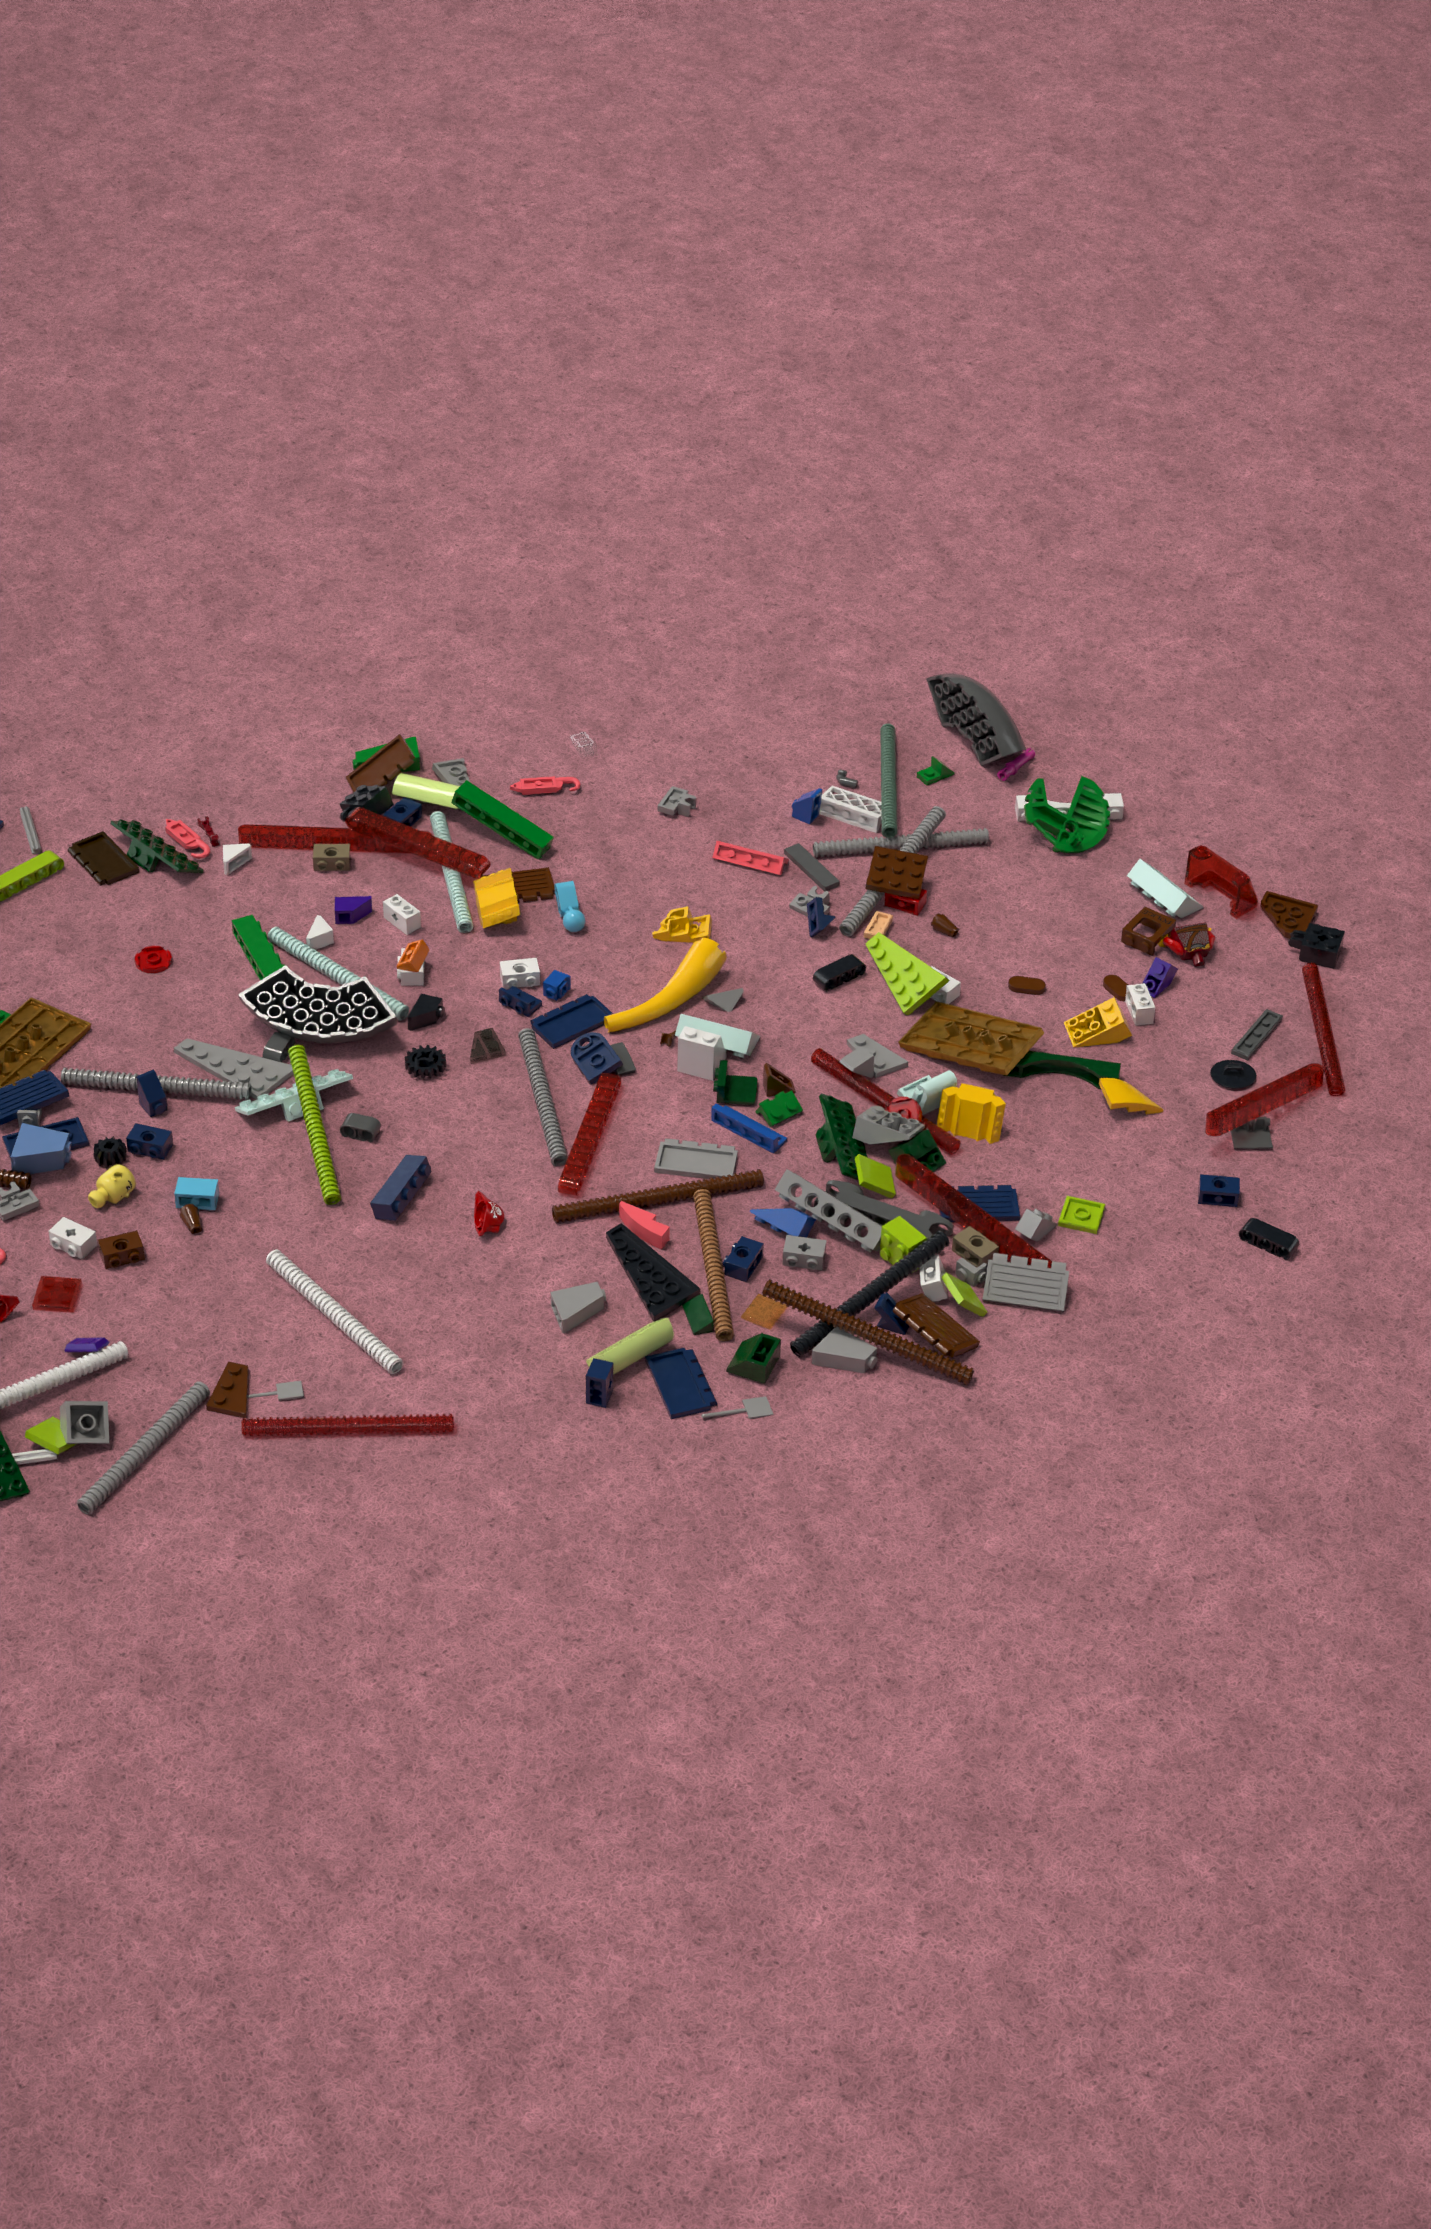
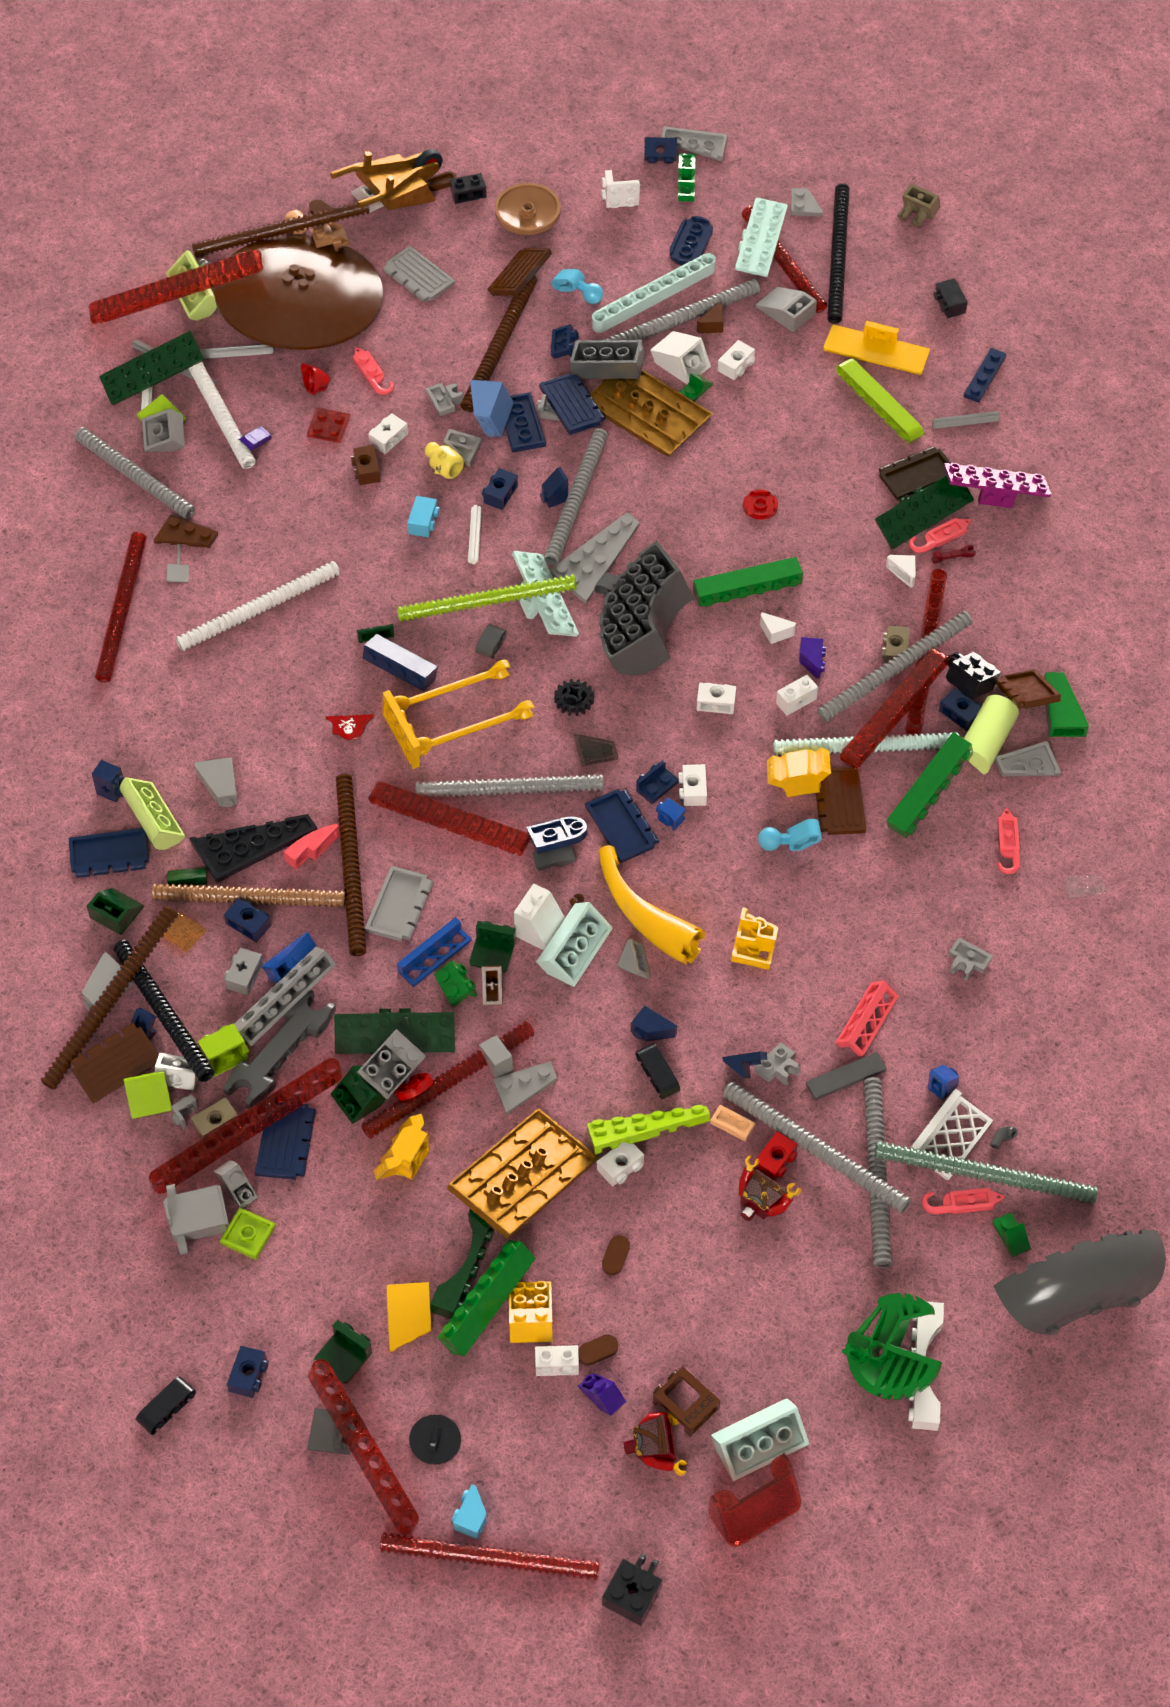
camera: 100 degrees right, 15 degrees up
(83, 1179) = (463, 444): none -> light grey wing
(109, 1152) = (491, 460): black gear -> none
(123, 797) = (997, 486): none -> magenta bracket
(191, 1218) = (397, 514): reddish brown cone -> none
(213, 1157) = (474, 537): none -> white axle
(328, 966) = (715, 640): light aqua piece -> none
(357, 1215) = (385, 631): none -> dark green slope
(365, 848) = (893, 667): none -> light grey piece
(413, 956) = (717, 692): orange slope -> none
(425, 1012) = (646, 702): black slope -> none
(483, 1173) = (414, 748): none -> yellow piece
(754, 1407) = (65, 907): light grey piece -> none
(794, 979) = (652, 1026): none -> dark blue slope
(875, 1176) = (335, 1044): lime tile -> none
(896, 872) = (798, 1141): reddish brown plate -> none
(914, 796) = (964, 1201): none -> coral plate
(928, 1090) = (444, 1116): light aqua piece -> none
(944, 899) = (762, 1194): none -> torso
(944, 925) = (725, 1188): reddish brown cone -> none
(1012, 766) = (1034, 1338): dark pink pin -> none
(1026, 1284) = (150, 1153): light grey hinge -> none
(1082, 1239) = (195, 1214): none -> light grey piece
(1098, 1048) = (486, 1298): none -> green brick
(1176, 1134) = (345, 1351): none -> dark green bracket
(1256, 1034) = (496, 1482): dark grey tile -> none
(1288, 912) = (700, 1573): reddish brown plate -> none
(1291, 1040) = (472, 1514): none -> medium azure slope

